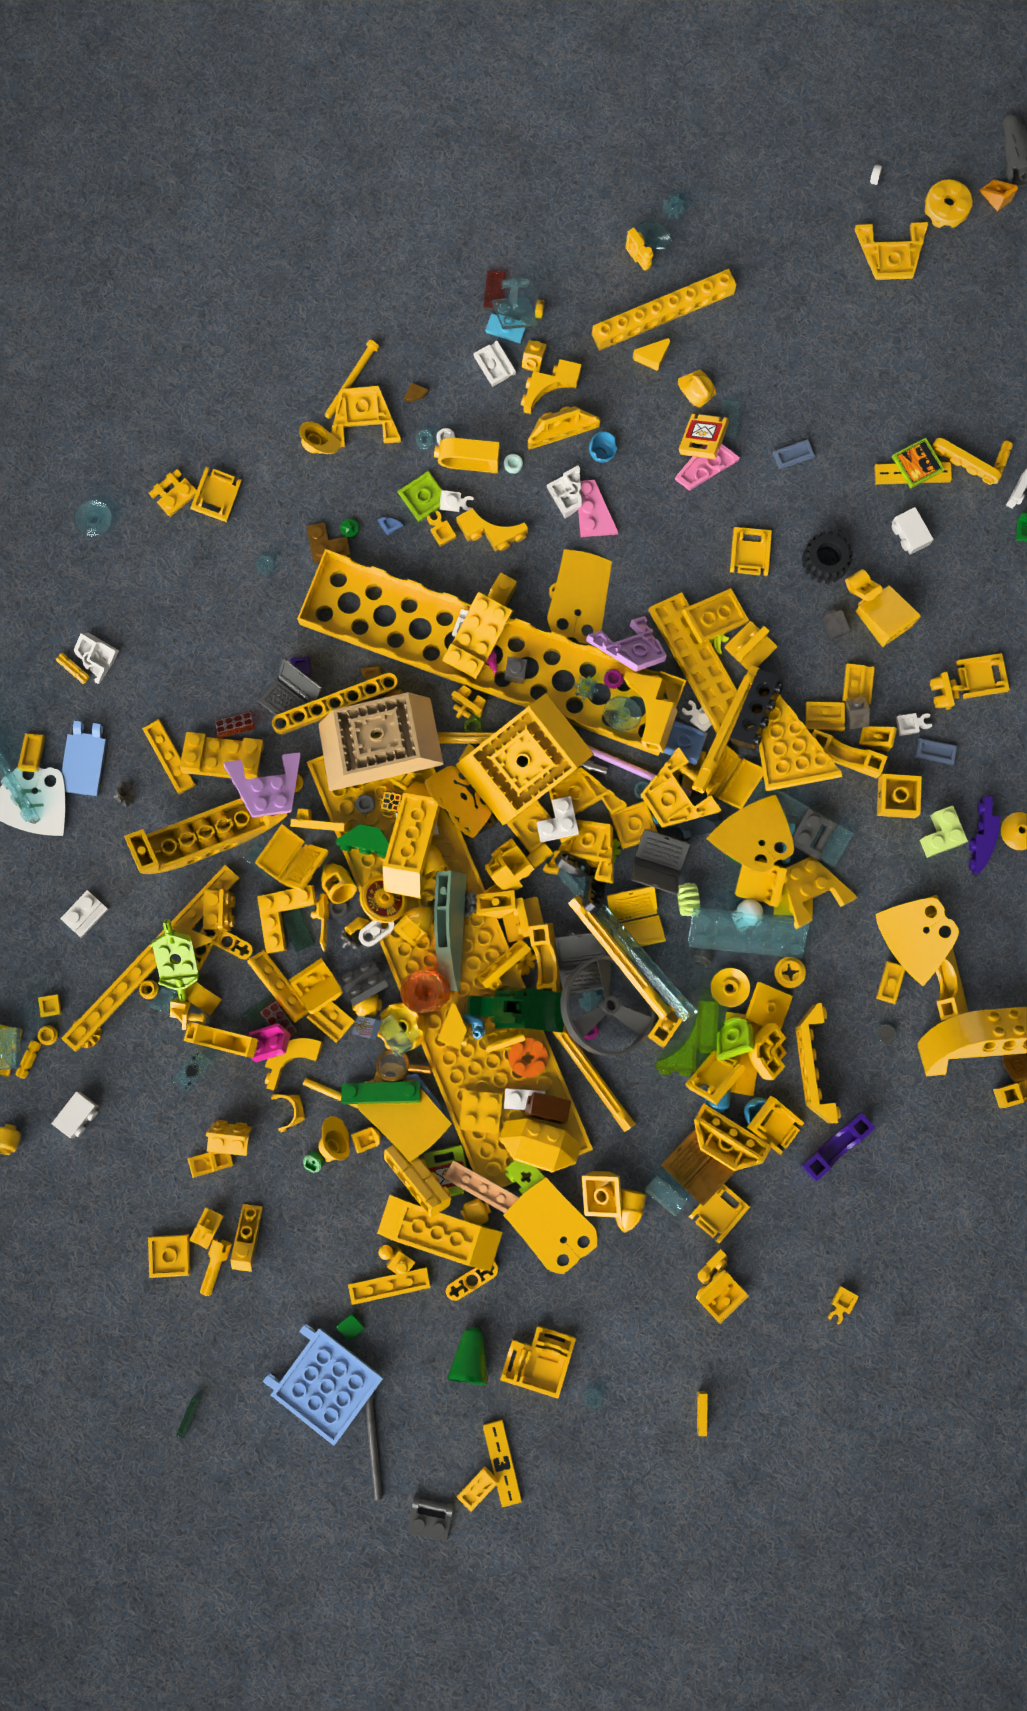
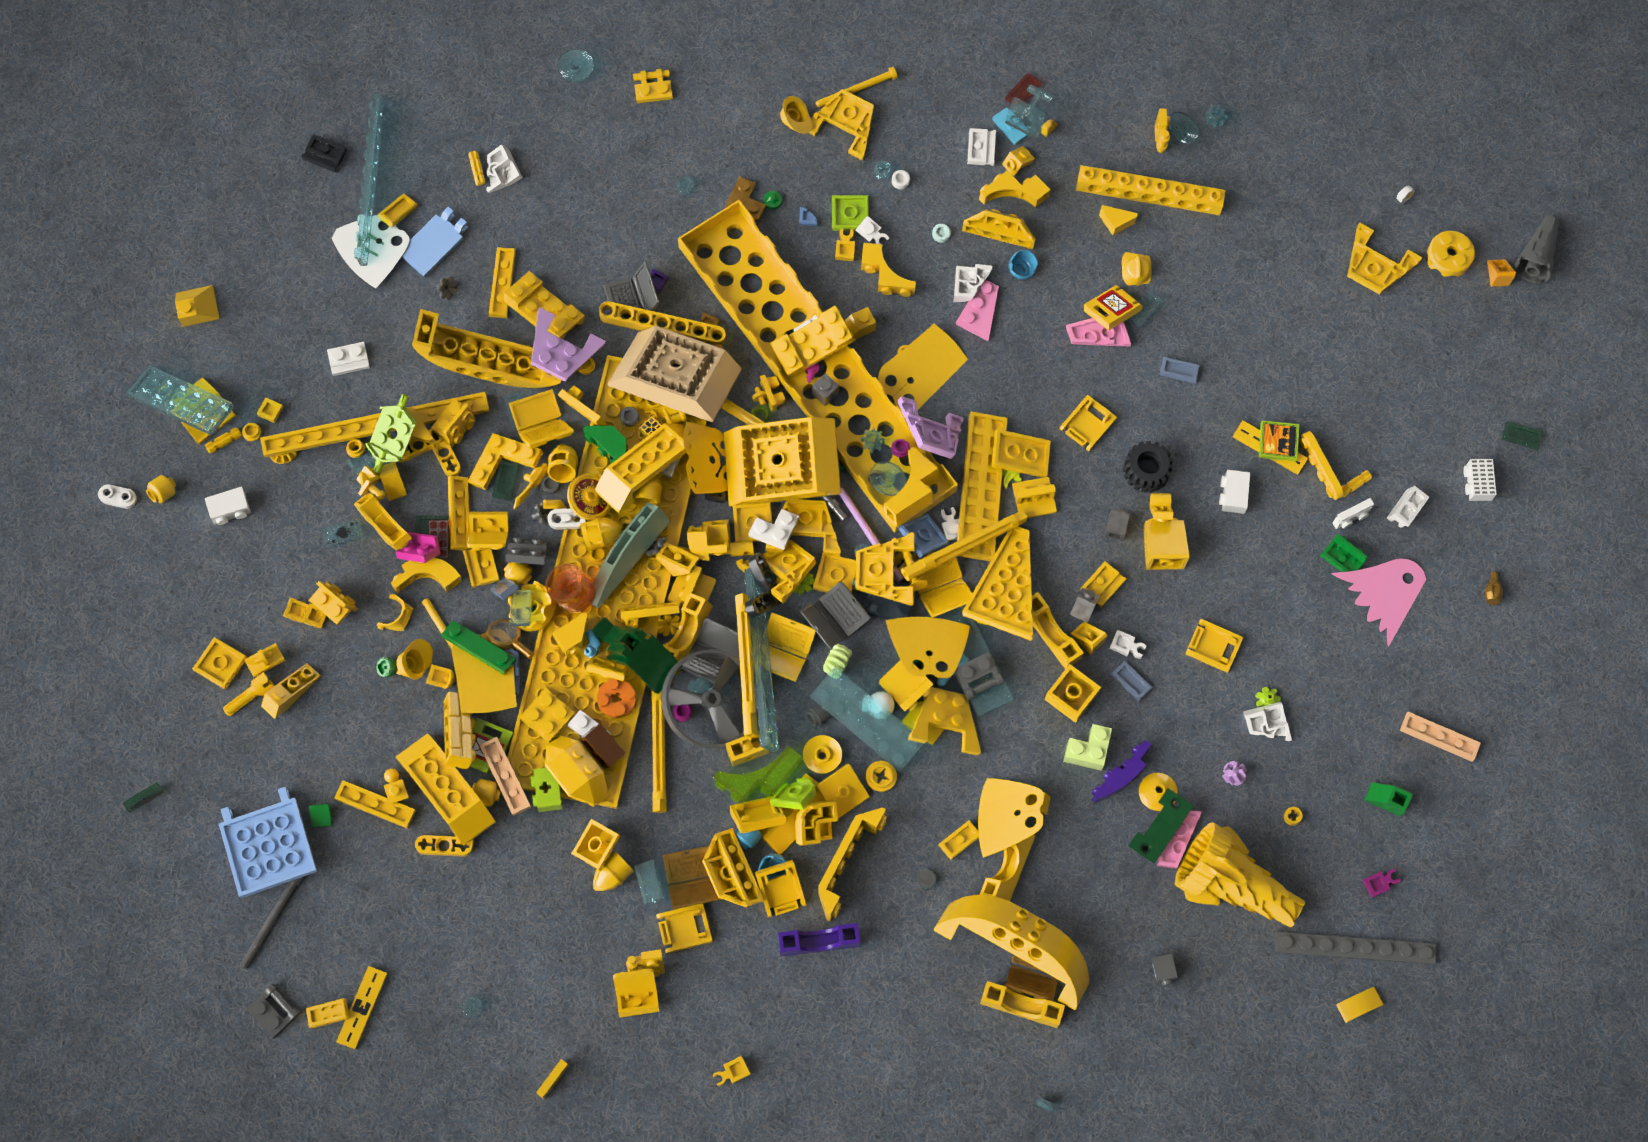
camera: 30 degrees right, 10 degrees down
(216, 491) = (687, 105): yellow container -> none
(234, 724) = (571, 291): clear red tile -> none
(415, 393) = (900, 129): pearl gold tile -> none
(468, 454) = (908, 202): yellow window -> none
(470, 1359) = (395, 905): green cone -> none
(540, 1364) = (451, 949): yellow piece -> none
(543, 1218) = (536, 833): yellow piece -> none
(762, 682) = (1011, 538): black brick -> none
(825, 716) = (1057, 591): yellow plate -> none
(946, 699) = (1168, 643): yellow hips -> none

